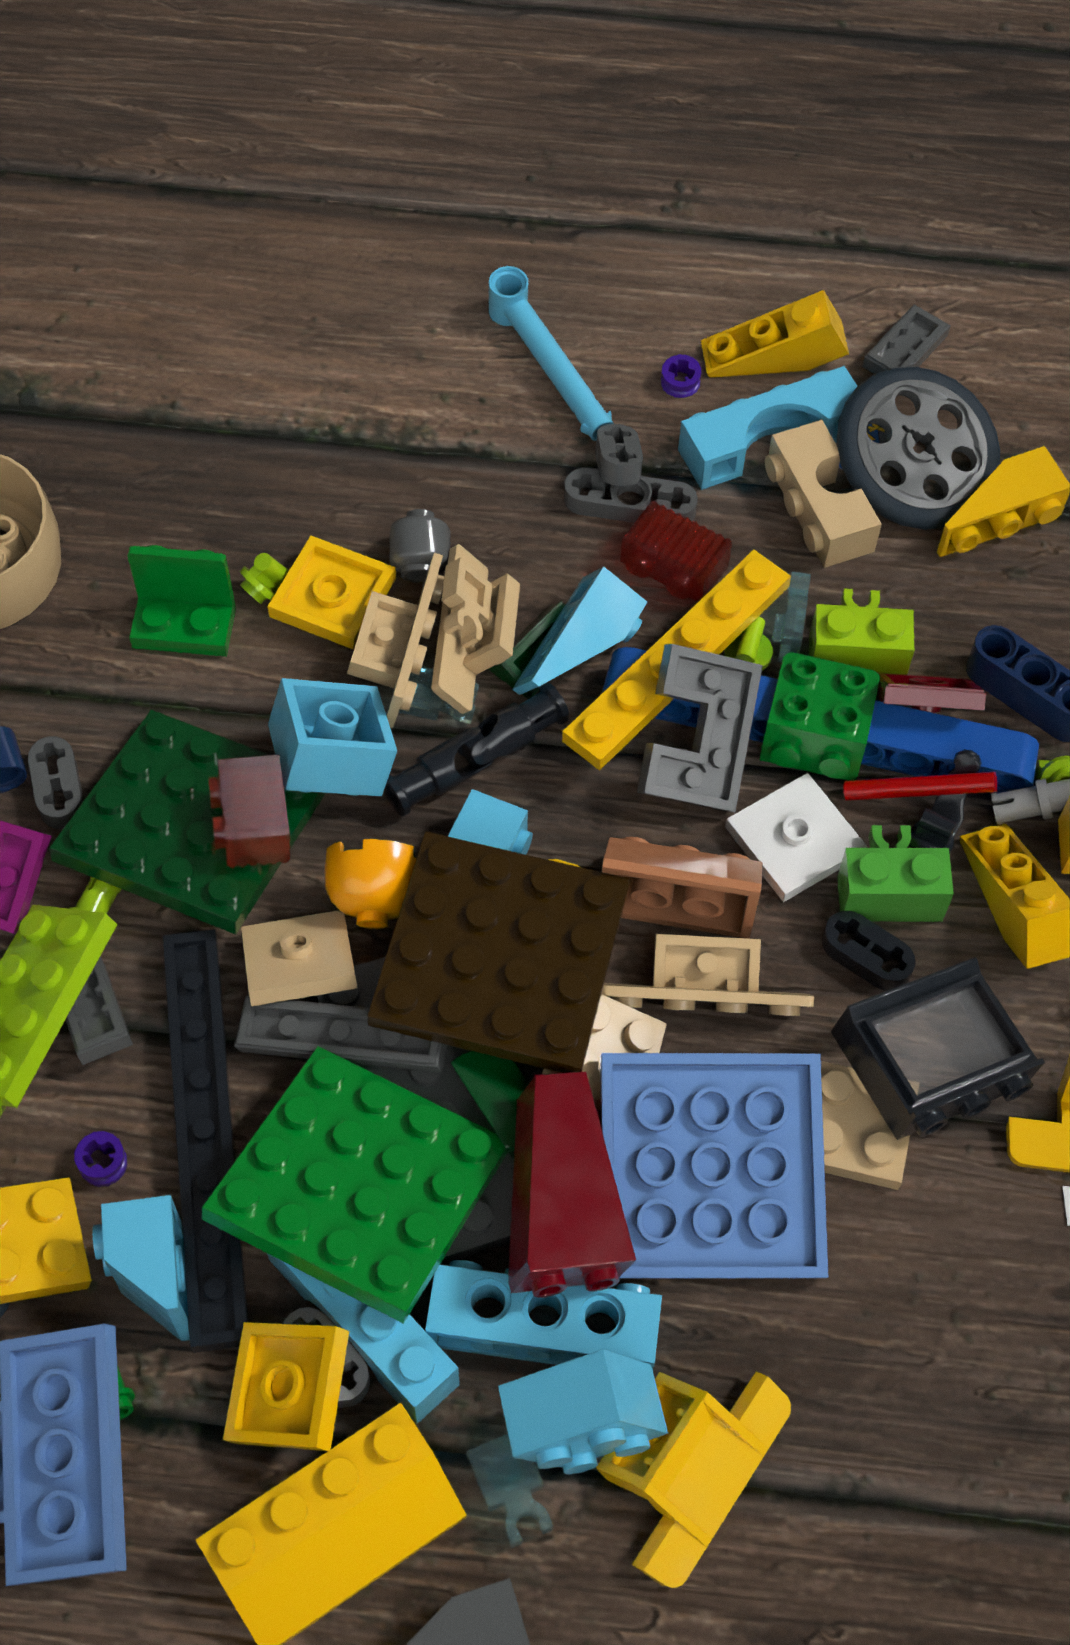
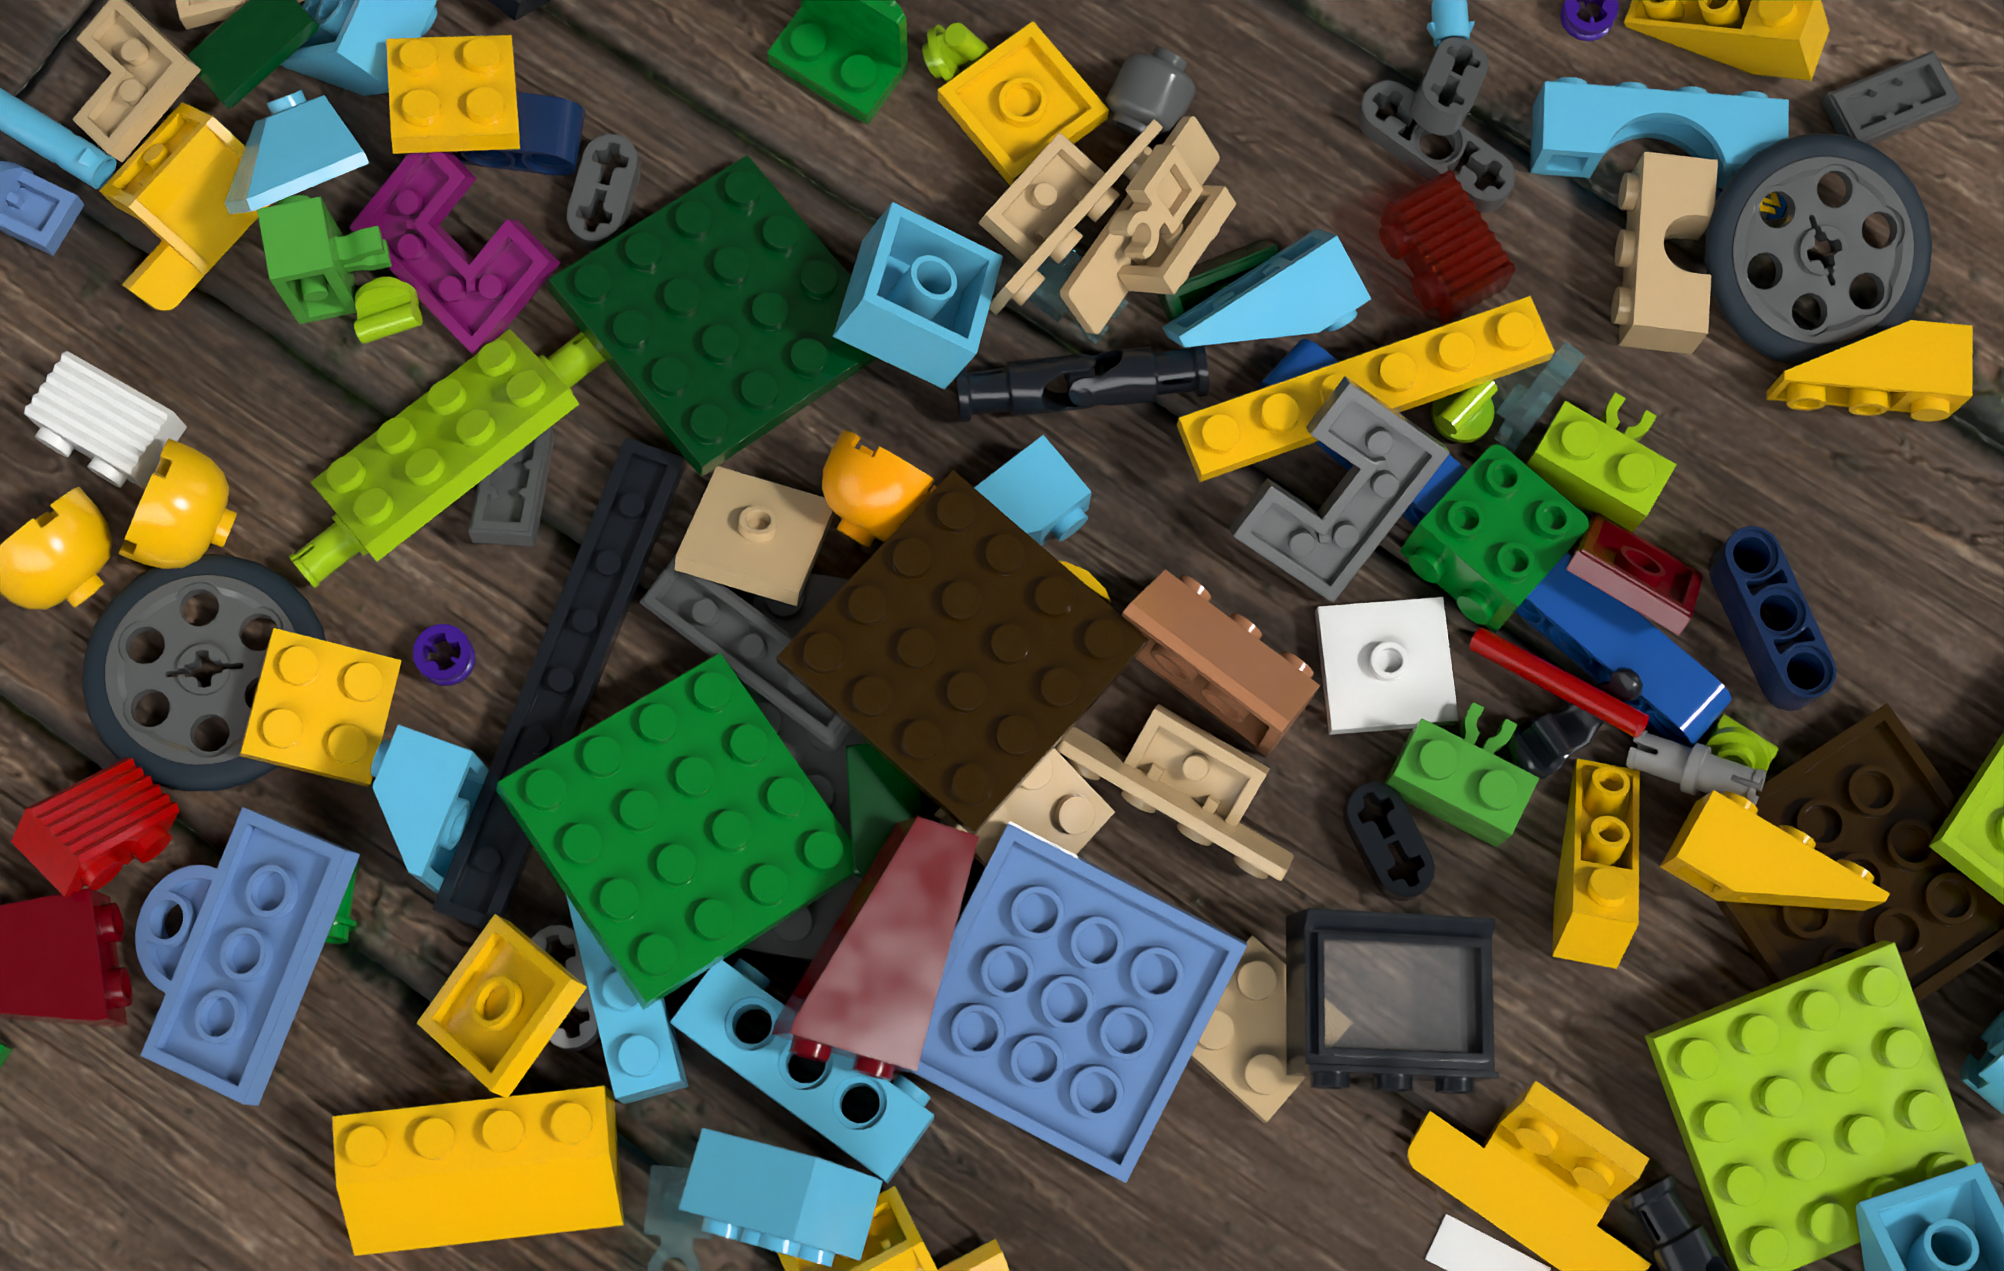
camera: 25 degrees right, 15 degrees up
(252, 810) = (782, 345): clear red brick -> none

